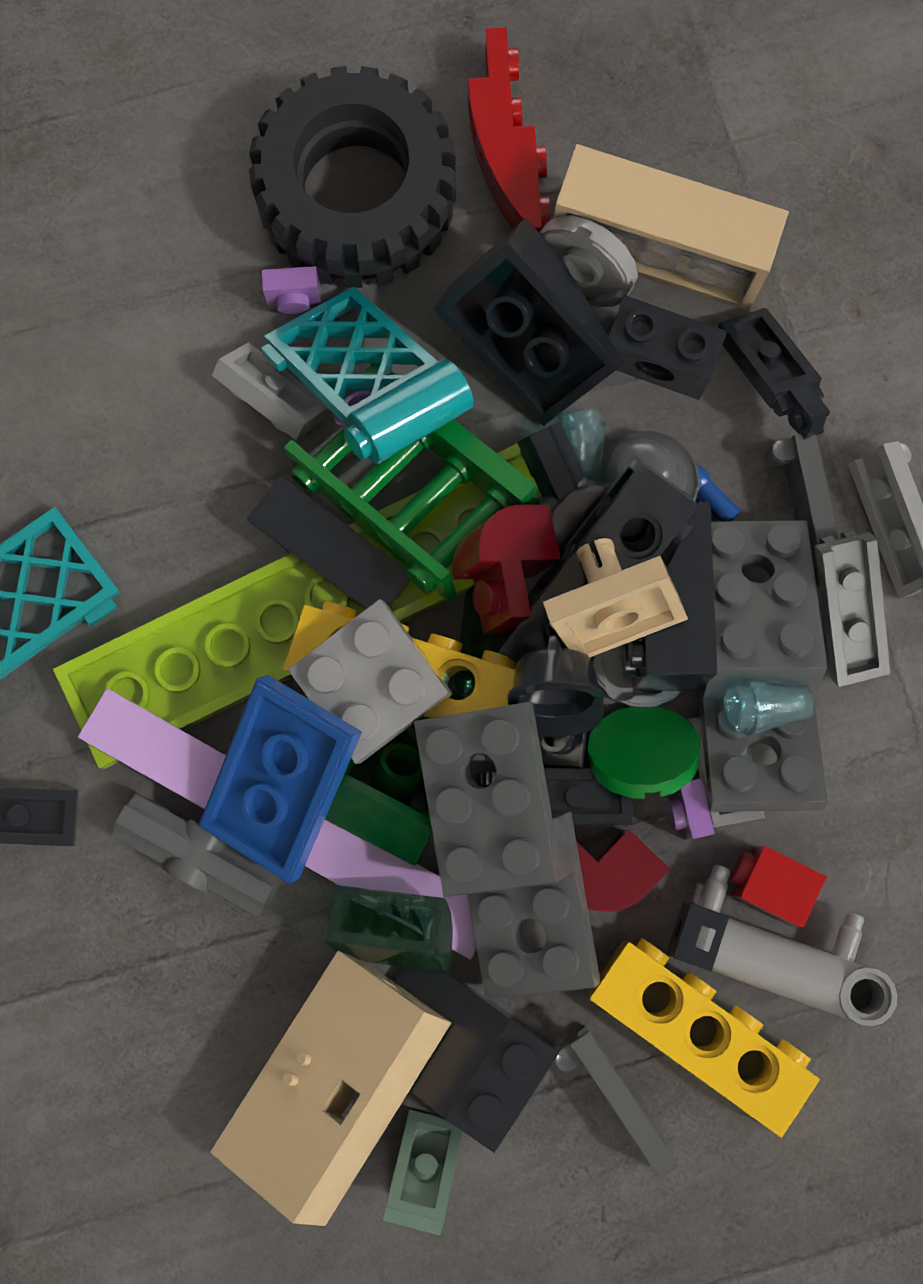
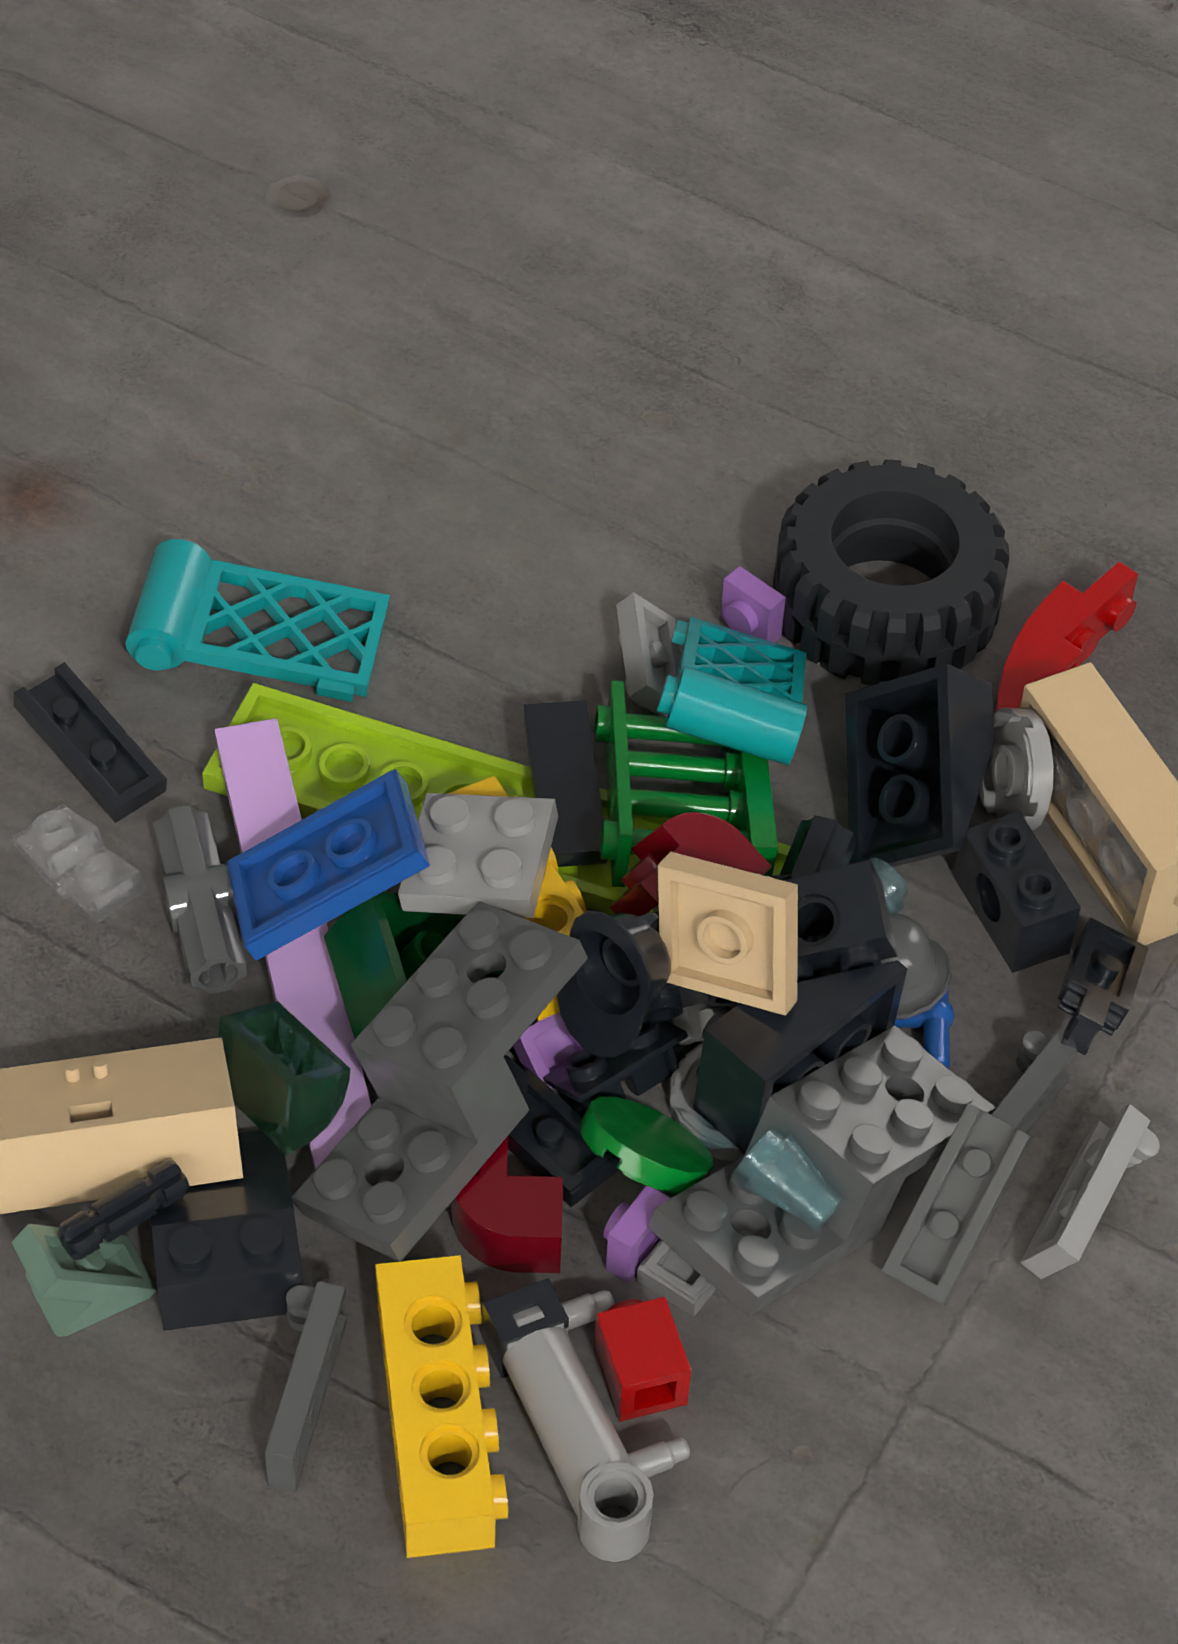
camera: 45 degrees right, 30 degrees down
(92, 904) = (77, 865): none -> clear slope
(422, 1132) = (122, 1209): none -> black axle

